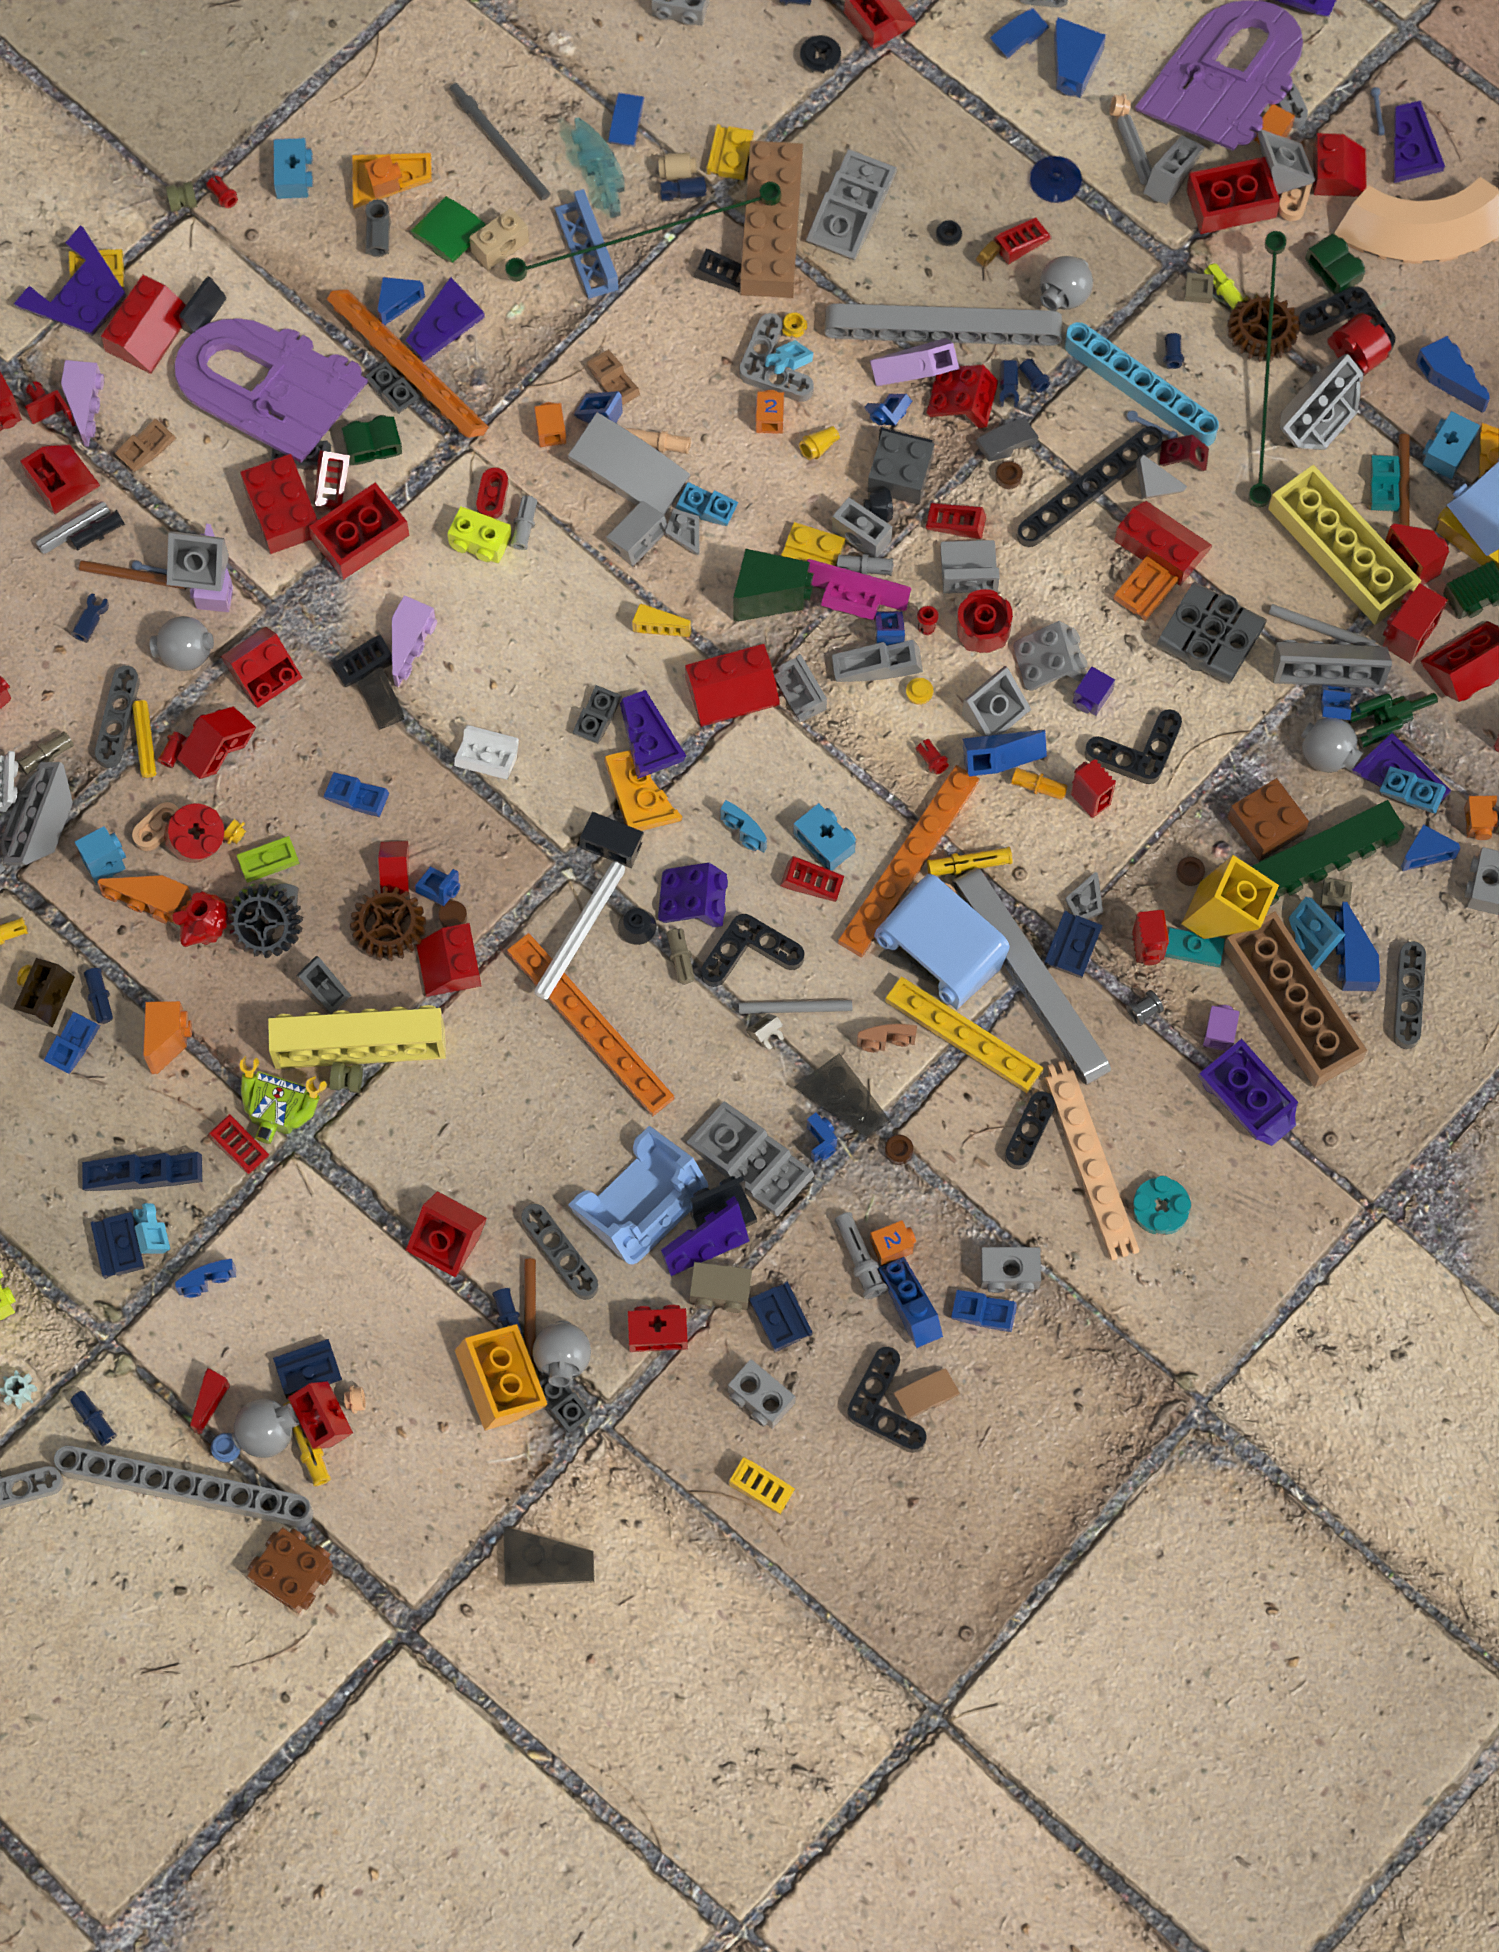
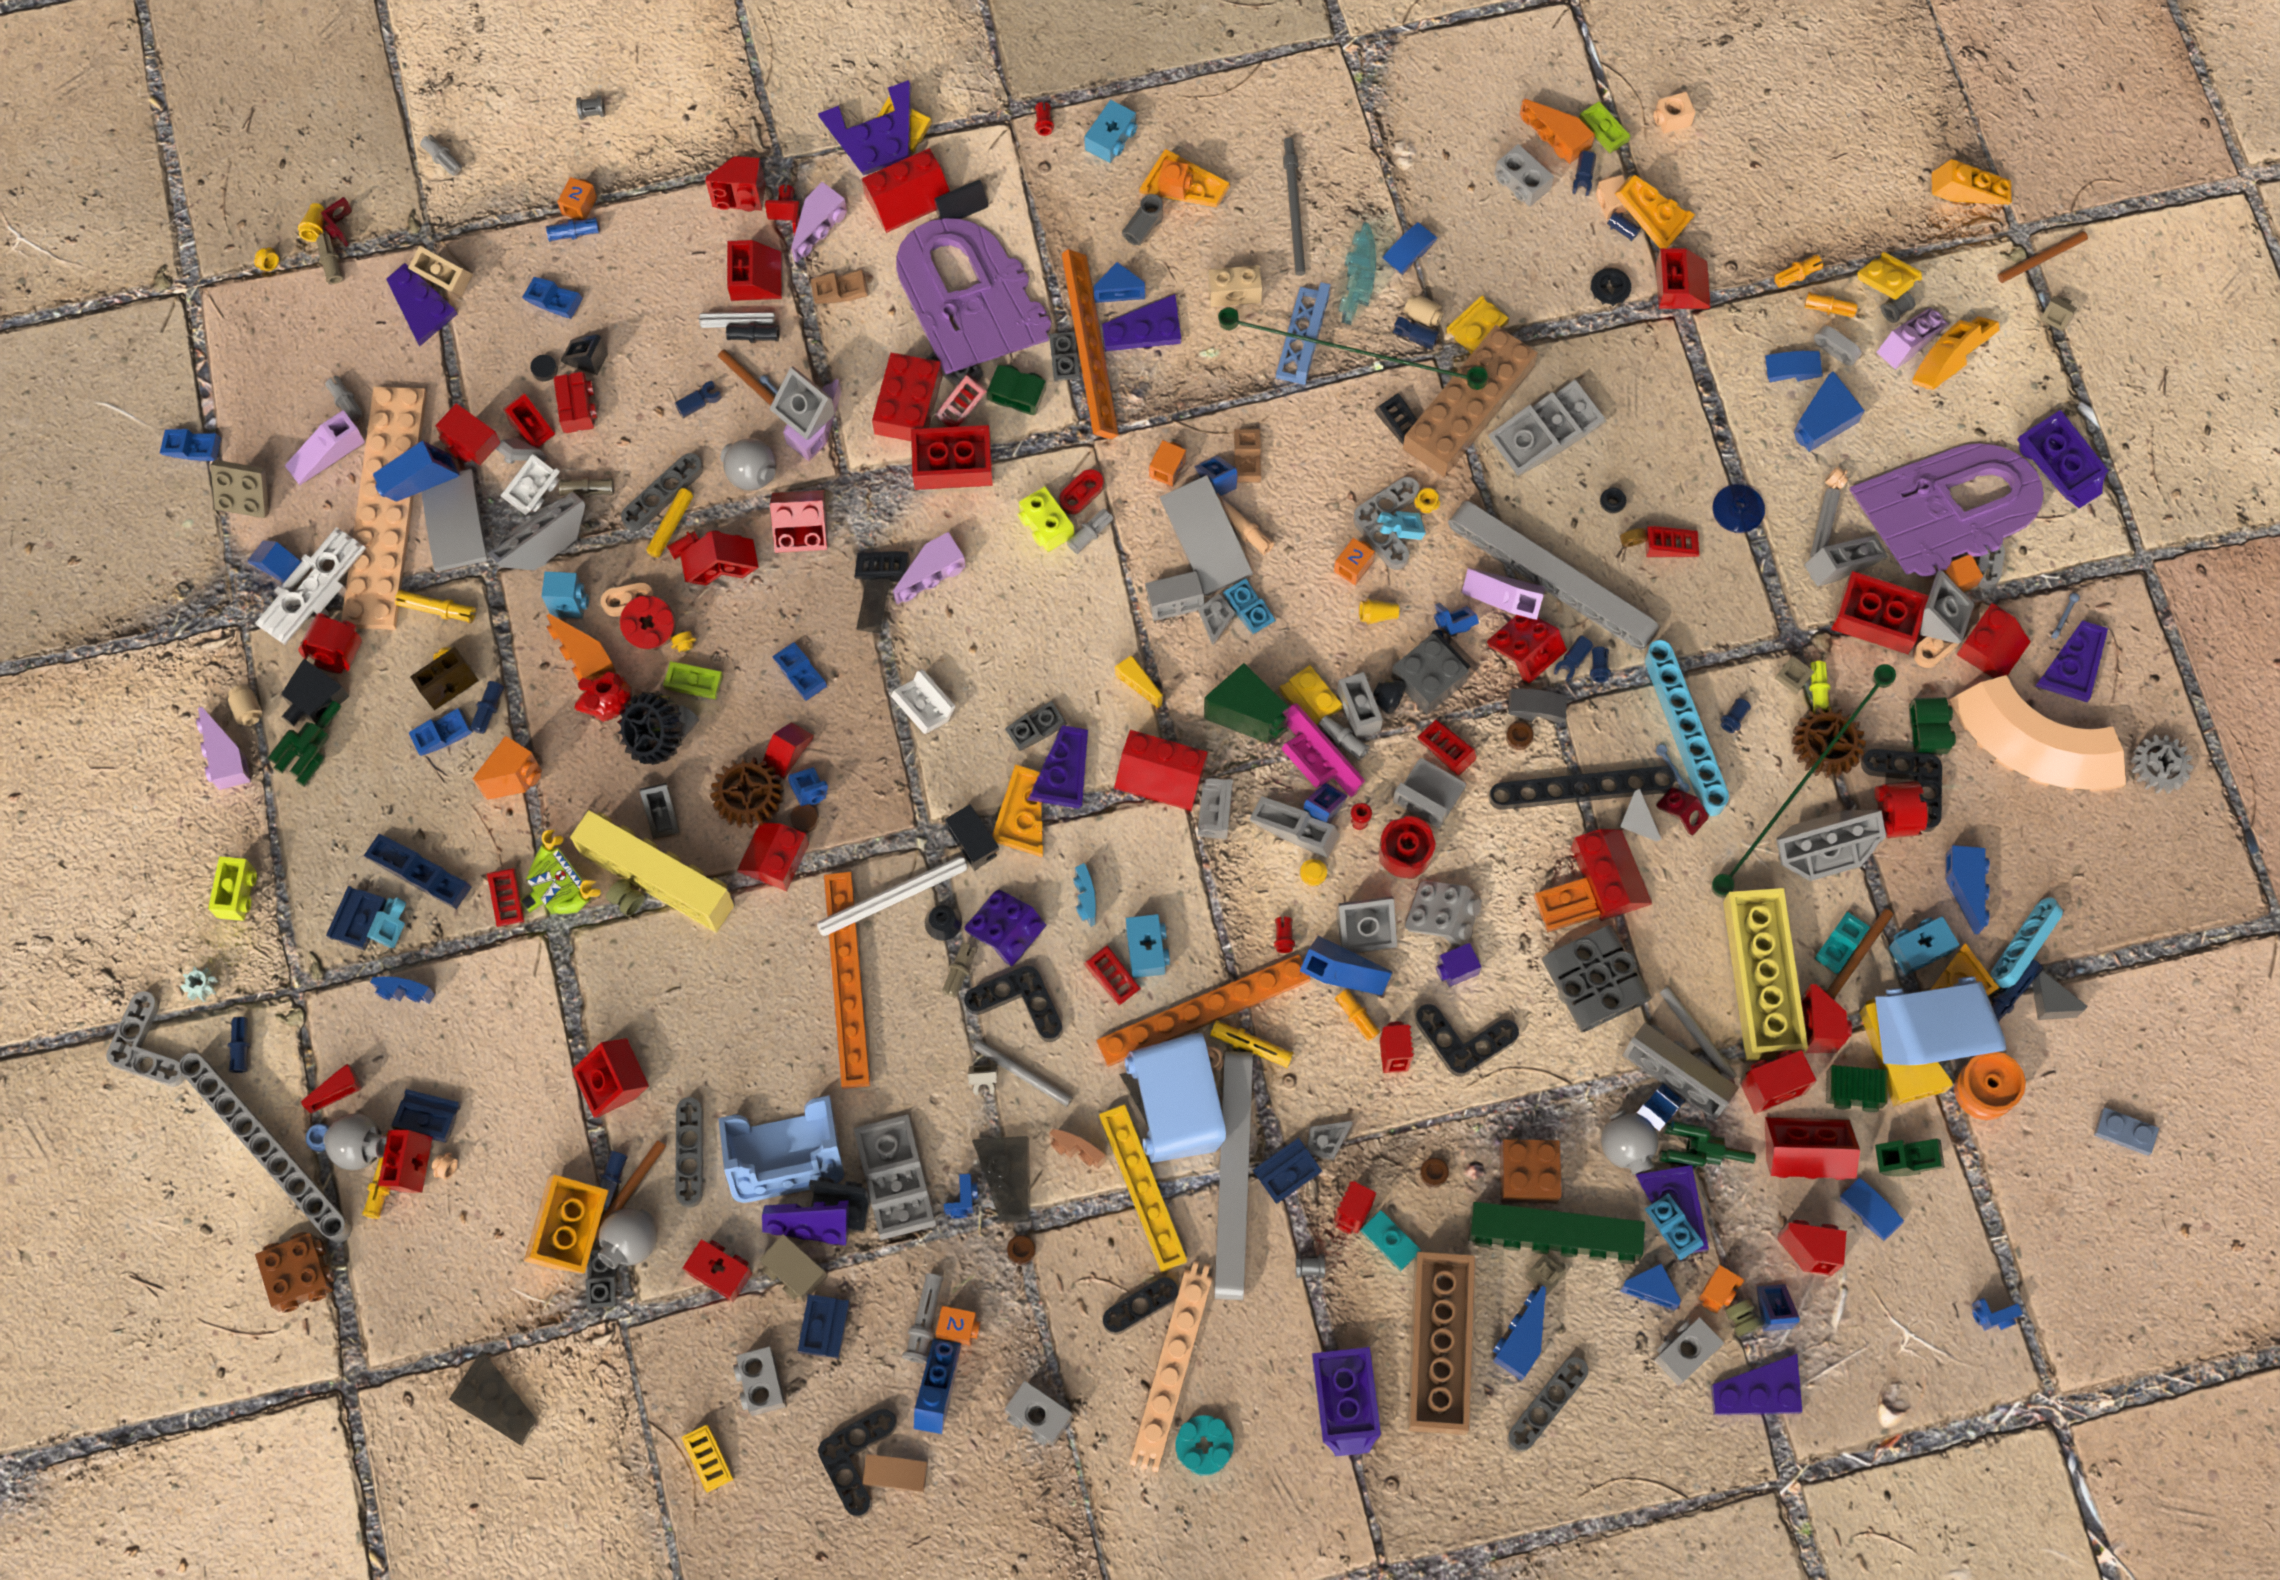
camera: 35 degrees right, 0 degrees up
(181, 196) = (1008, 104): olive wheel -> none
(448, 229) = (1200, 252): green slope -> none
(984, 1311) = (992, 1435): blue slope -> none
(1065, 283) = (1679, 602): light grey brick -> none
(1221, 1027) = (1362, 1325): medium lavender brick -> none
(1230, 901) = (1442, 1222): yellow slope -> none
(1314, 931) = (1501, 1296): dark azure wing -> none

